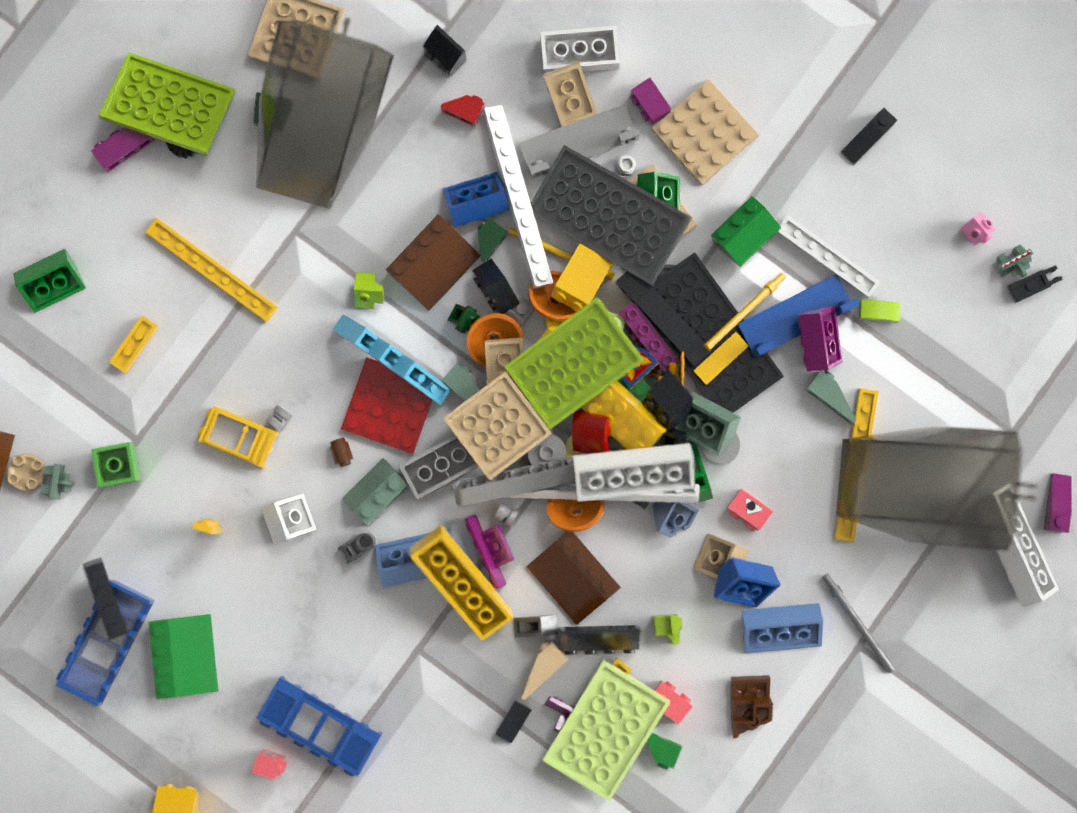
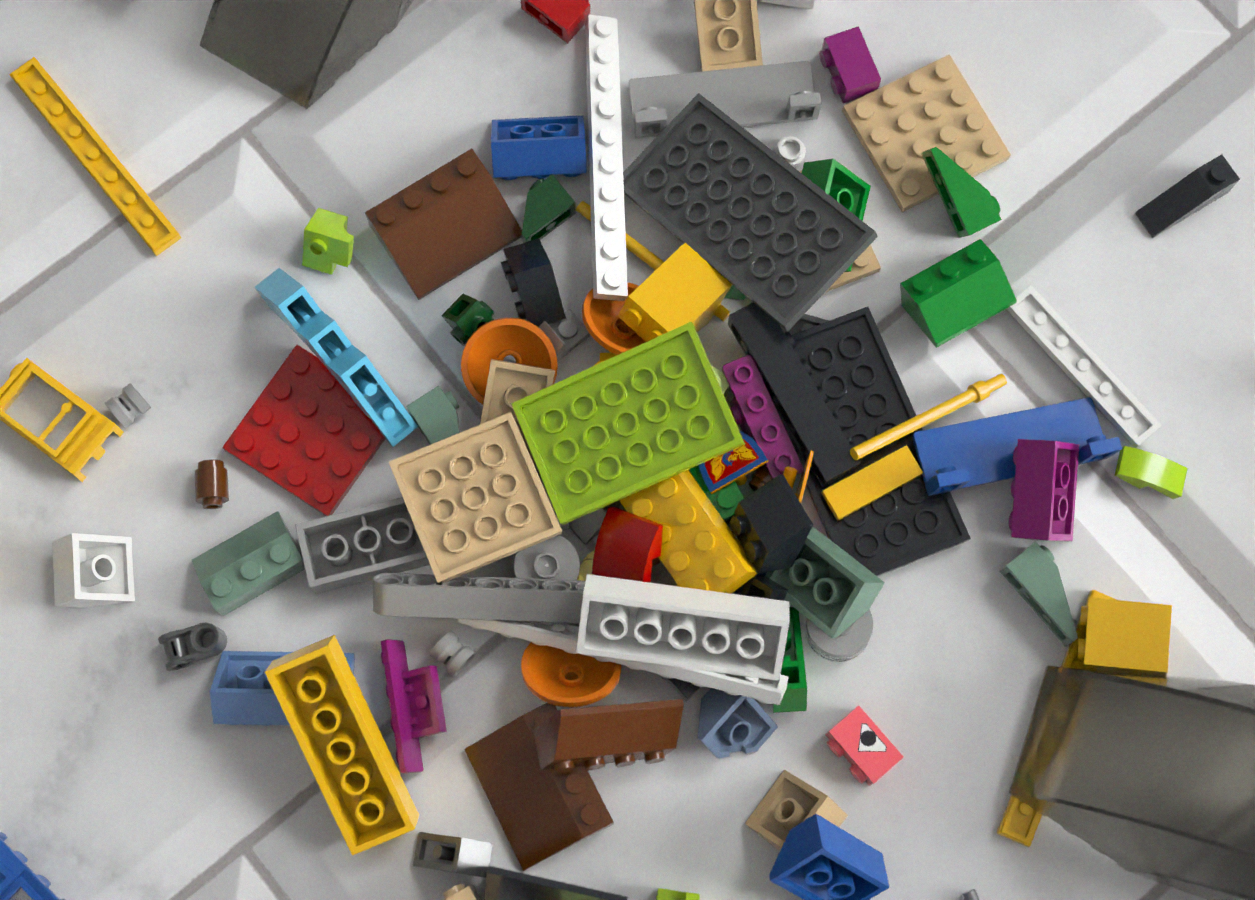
camera: 10 degrees right, 10 degrees down
(607, 541) = (608, 735): none -> reddish brown slope
(739, 173) = (964, 198): none -> green slope
(883, 413) = (1125, 636): none -> yellow slope

